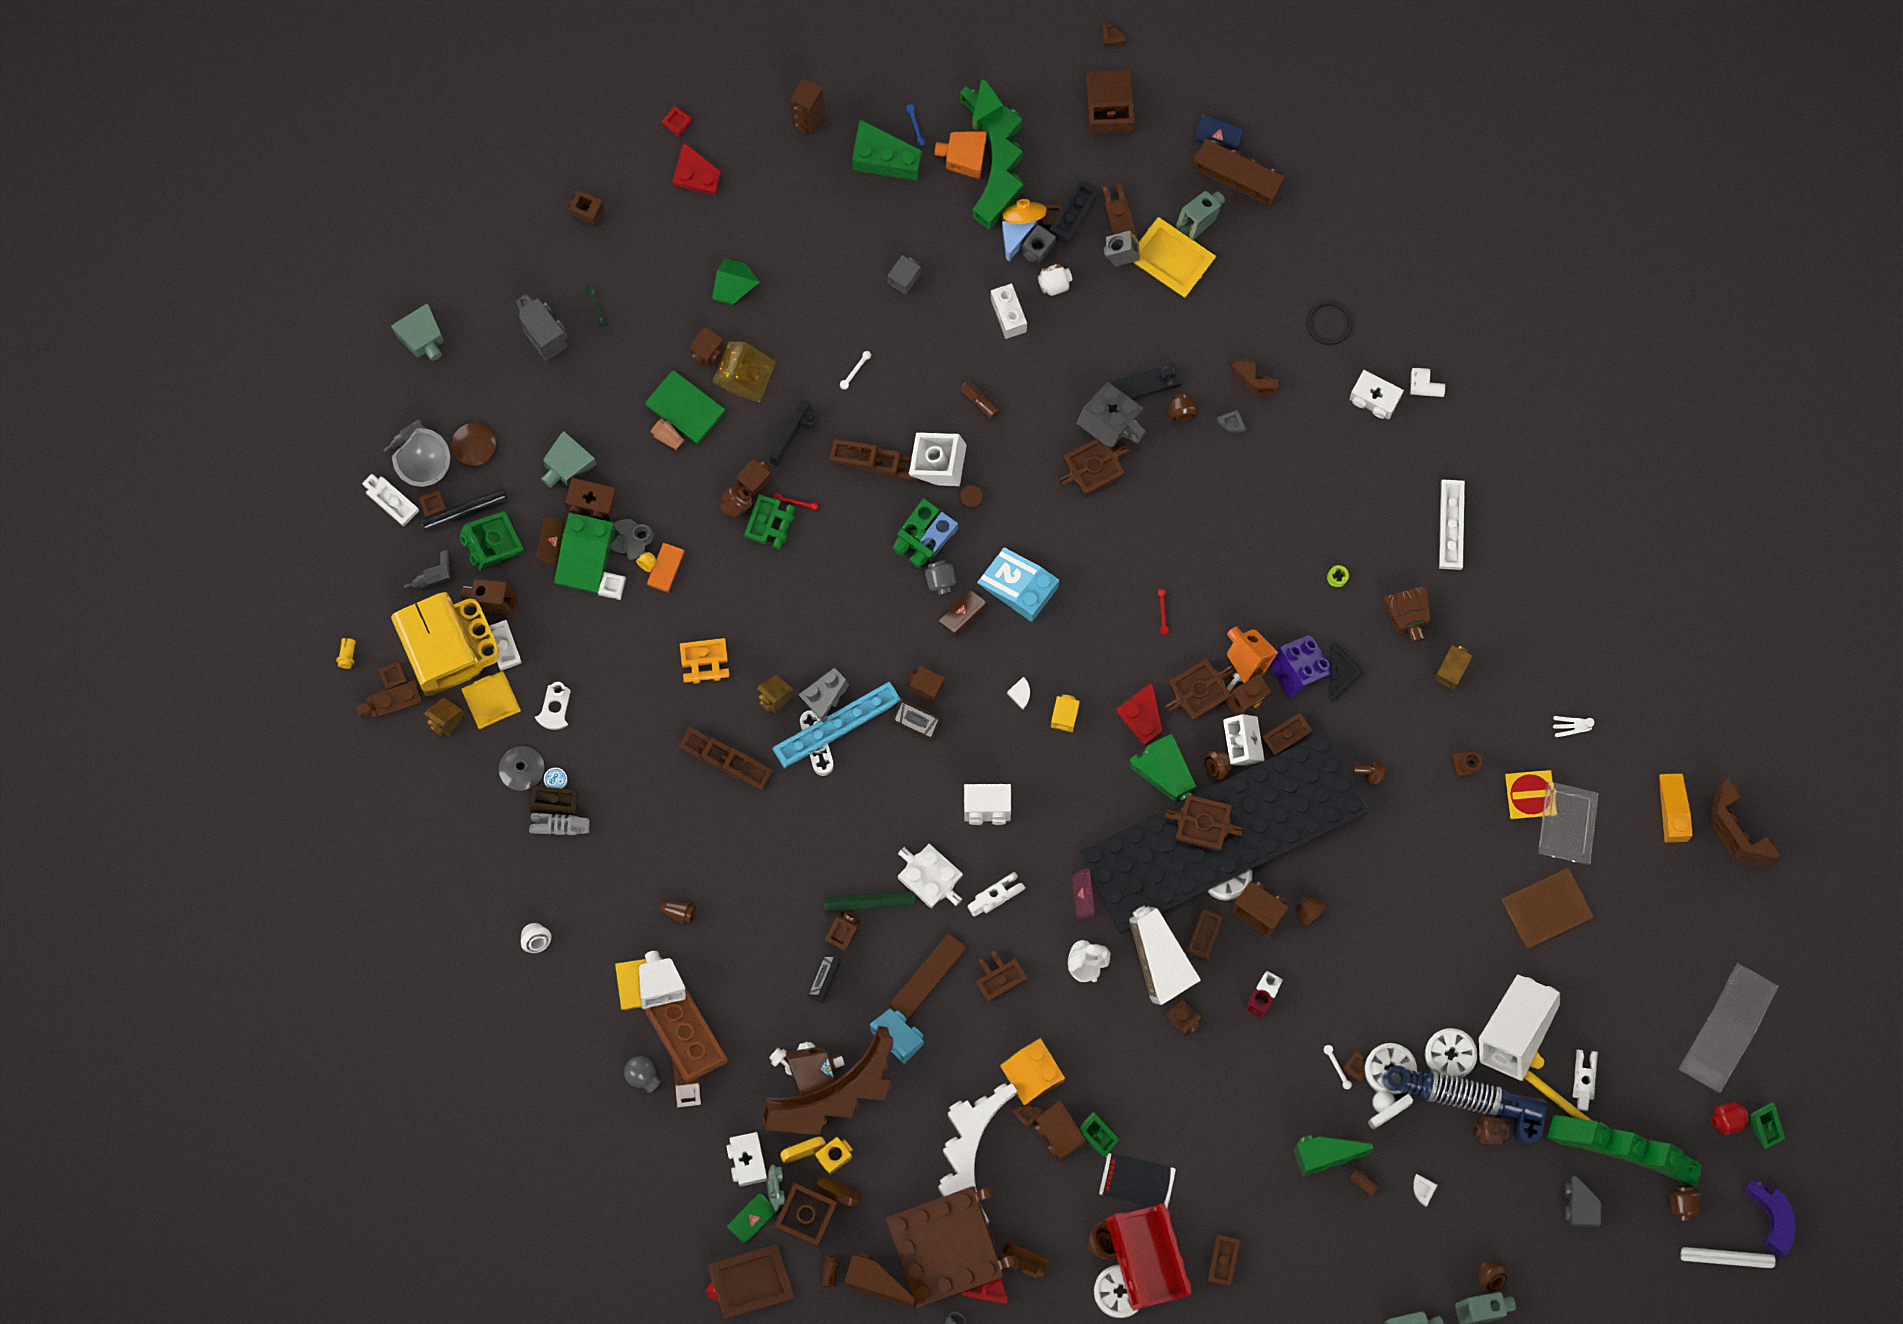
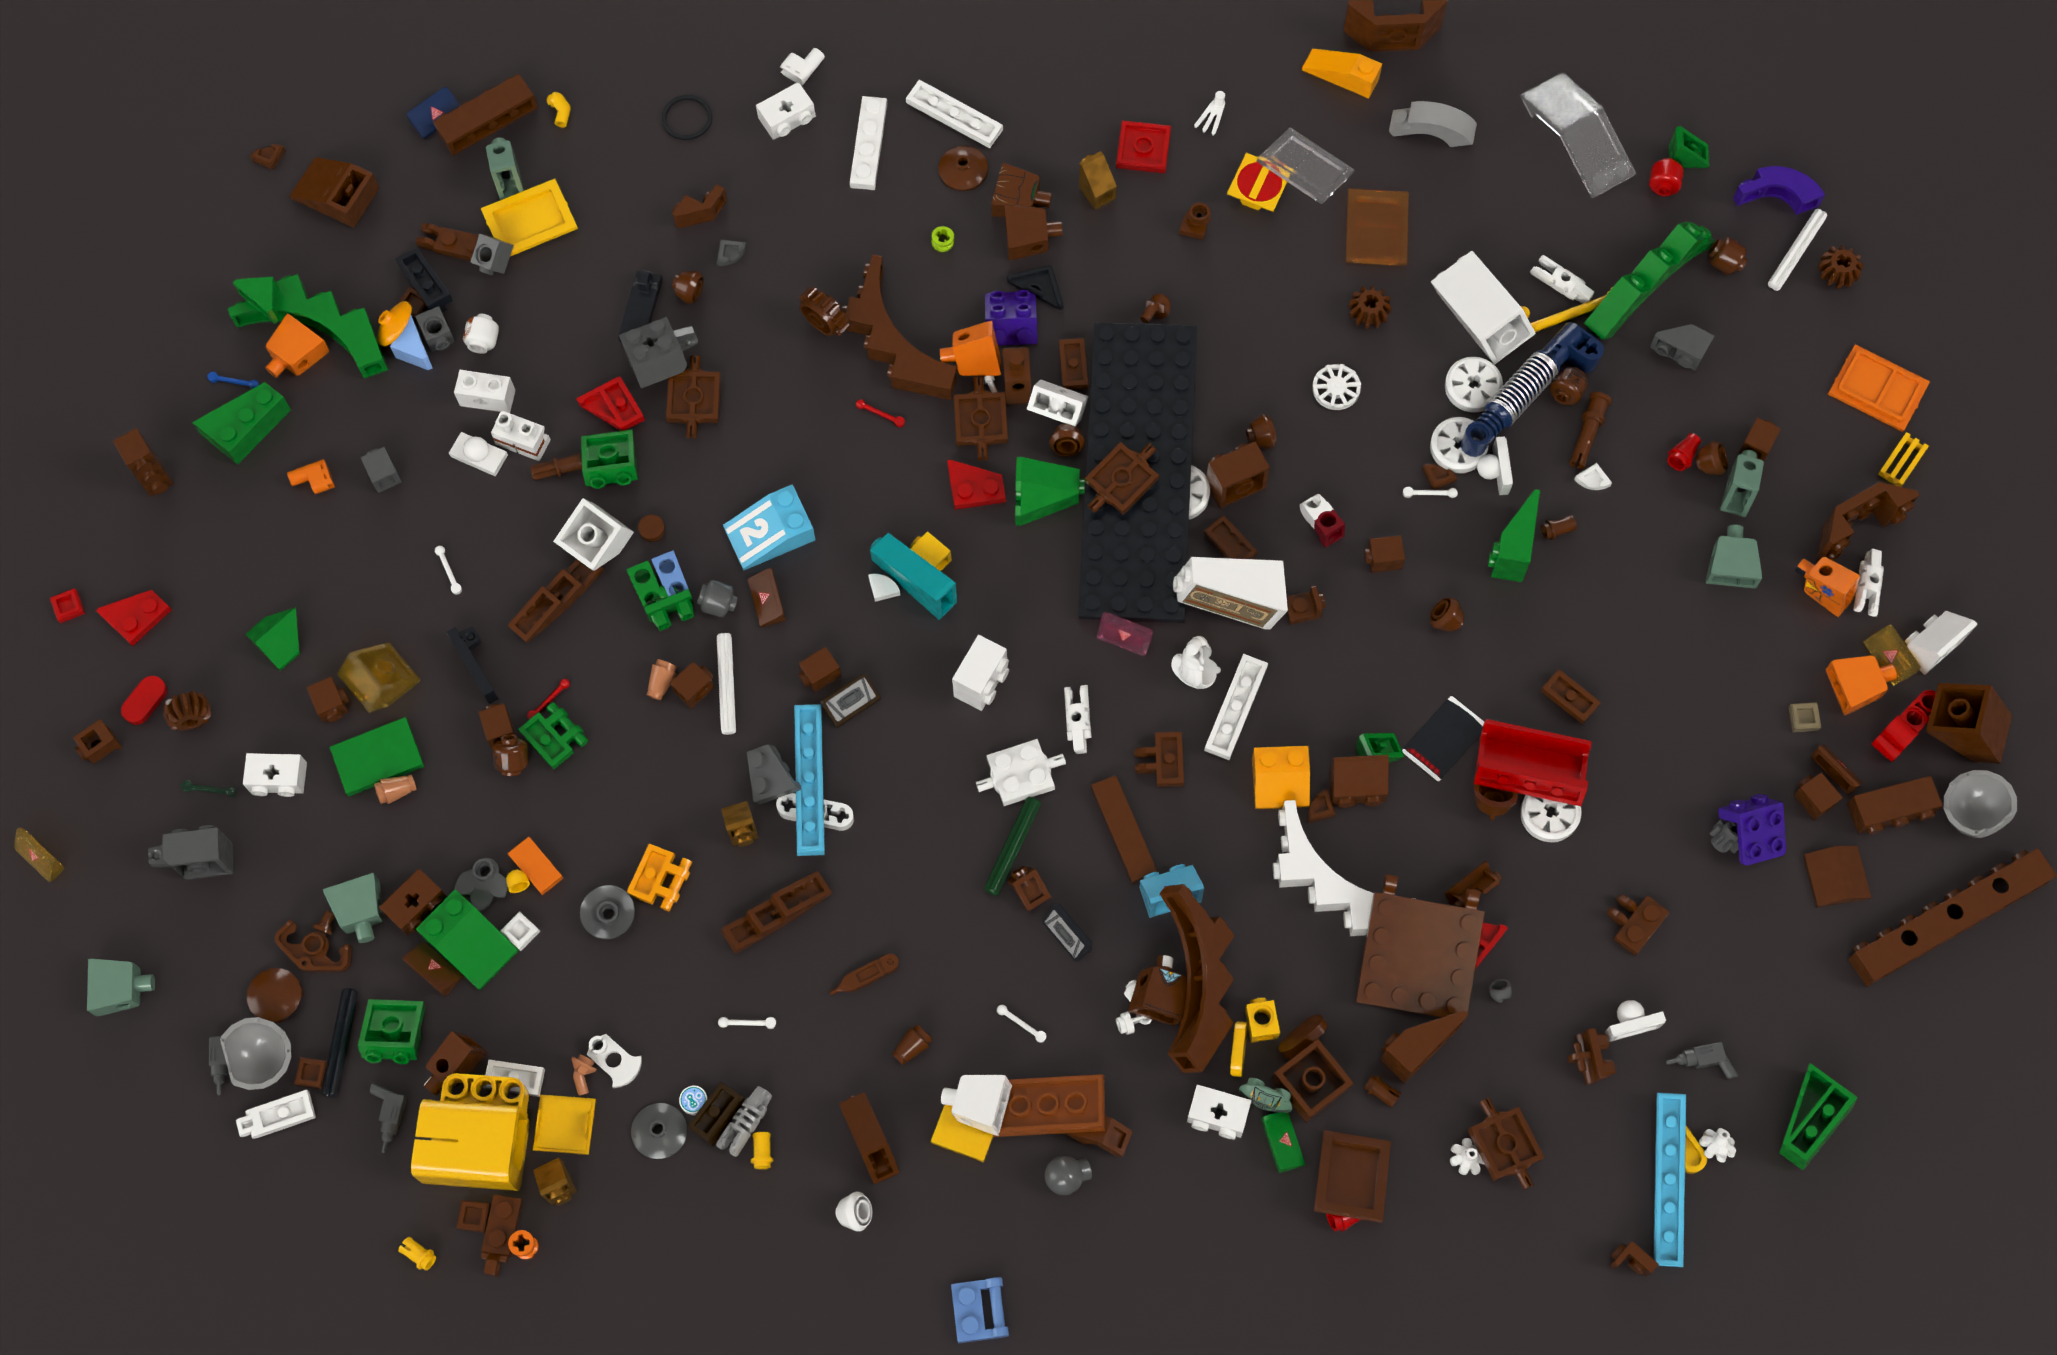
camera: 60 degrees left, 5 degrees down
(390, 714) = (517, 1239): none -> orange bush
(484, 220) = (37, 855): none -> clear yellow slope
(508, 1059) = (969, 1310): none -> medium blue plate
(518, 451) = (312, 951): none -> reddish brown piece
(537, 688) = (582, 1067): none -> nougat plate
(544, 848) = (761, 1147): none -> yellow pin
(593, 917) = (869, 1137): none -> reddish brown slope
(636, 219) = (144, 700): none -> red tile
(639, 354) = (262, 767): none -> white brick
(640, 800) = (770, 1022): none -> white hinge
(642, 255) = (187, 711): none -> reddish brown gear
(657, 628) = (598, 903): none -> dark grey dish
(715, 850) = (868, 974): none -> reddish brown piece
(736, 1000) = (1040, 1036): none -> white hinge
(855, 573) = (660, 678): none -> nougat cone
(863, 598) = (692, 684): none -> reddish brown brick
(875, 230) = (317, 475): none -> orange piece
(879, 622) = (726, 683): none -> white axle
(958, 336) = (478, 453): none -> white tile
(988, 358) = (520, 435): none -> white hips
(1007, 433) = (609, 459): none -> green plate
(1040, 710) = (915, 575): none -> teal slope
(1053, 410) = (613, 404): none -> red wing
(1071, 1009) = (1236, 707): none -> white plate
(1215, 522) = (823, 312): none -> reddish brown gear
(1220, 581) = (908, 366): none -> reddish brown arch
(1237, 1131) = (1447, 615): none -> reddish brown cone
(1262, 1057) = (1385, 554): none -> reddish brown brick
(1281, 224) = (563, 108): none -> yellow arm
(1380, 638) = (1028, 231): none -> reddish brown torso
(1386, 948) = (1336, 386): none -> white wheel
(1388, 473) = (868, 143): none -> white plate
(1404, 566) = (963, 177): none -> reddish brown dish
(1460, 938) = (1369, 315): none -> reddish brown gear
(1475, 1163) = (1592, 420): none -> reddish brown pin
(1485, 1250) = (1683, 453): none -> red cone
(1511, 687) = (1143, 146): none -> red tile
(1532, 1305) = (1761, 438): none -> reddish brown brick
(1667, 906) = (1434, 119): none -> light grey arch
(1738, 1298) = (1840, 266): none -> reddish brown gear

